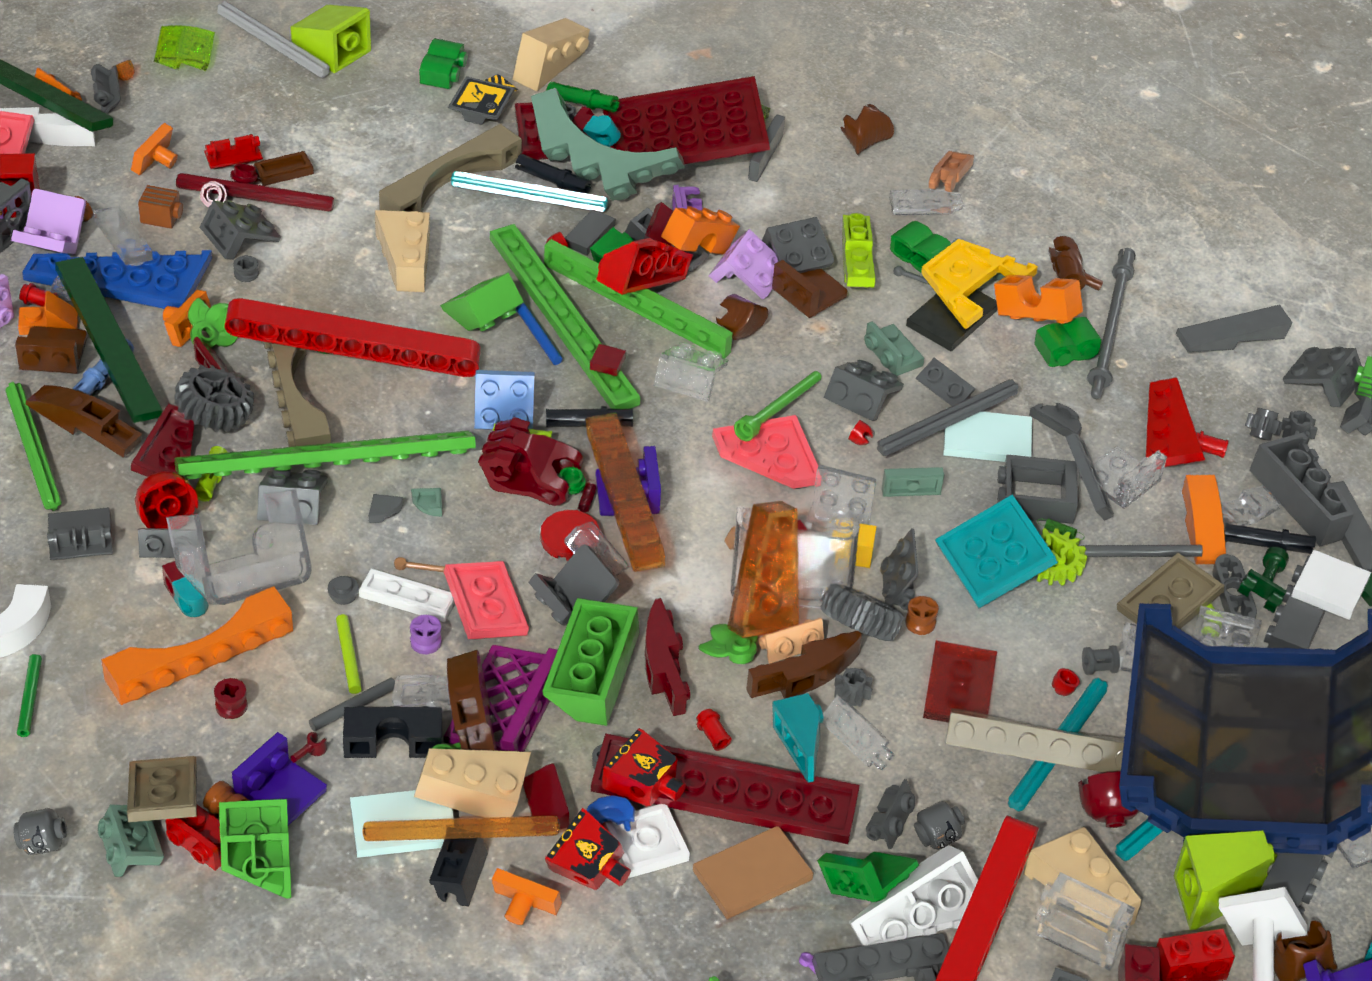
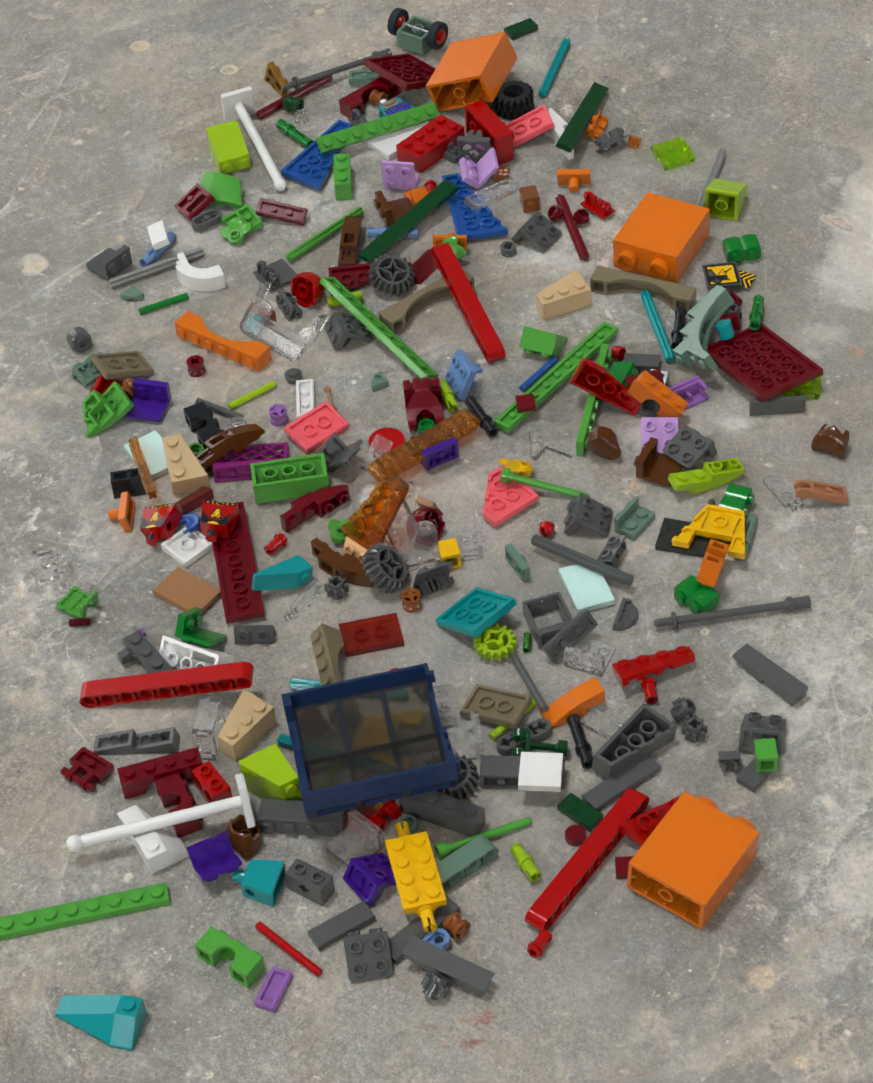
camera: 75 degrees right, 0 degrees up
(283, 168) = (601, 229): reddish brown tile -> none
(311, 747) = (183, 404): dark red hand -> none
(372, 115) = (661, 237): none -> orange brick
(383, 507) = (361, 367): dark grey tile -> none
(549, 51) = (789, 283): tan wedge -> none
(725, 414) = (517, 466): none -> yellow plate
(939, 825) = (253, 652): dark grey head -> none
(1069, 263) = (770, 575): reddish brown piece -> none

